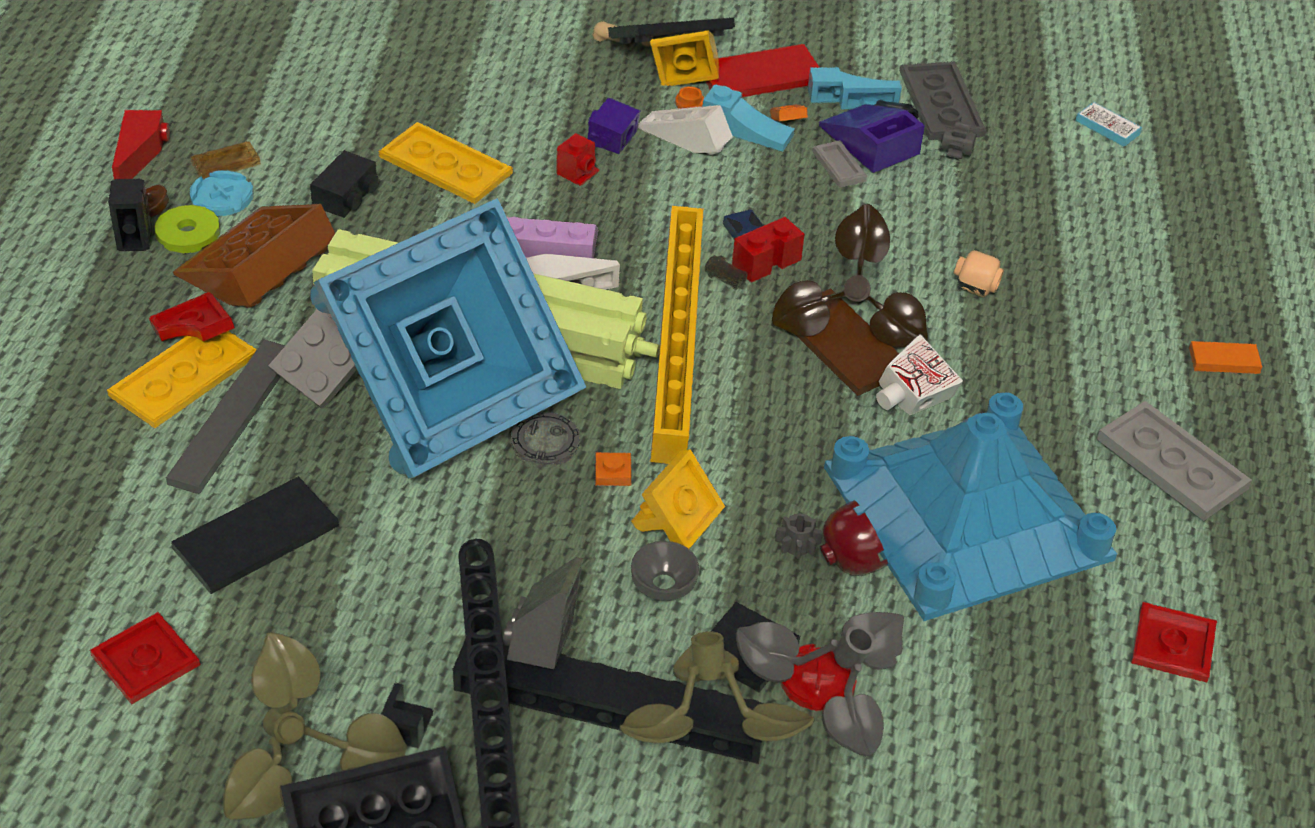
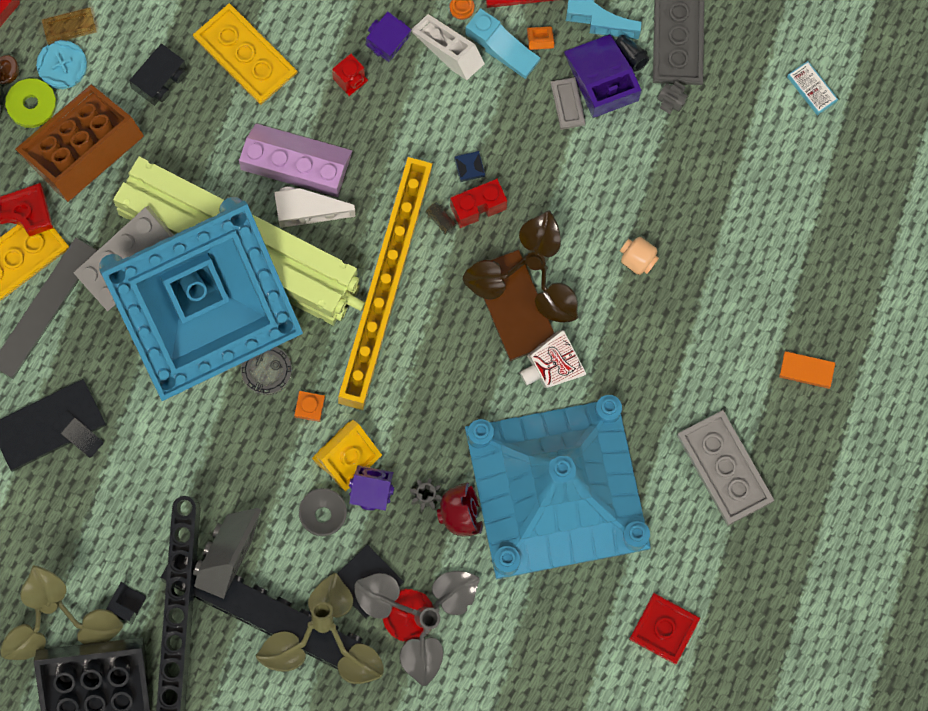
camera: 10 degrees right, 30 degrees up
(302, 535) = (78, 434): none -> black sticker
(723, 534) = (371, 488): none -> dark purple head

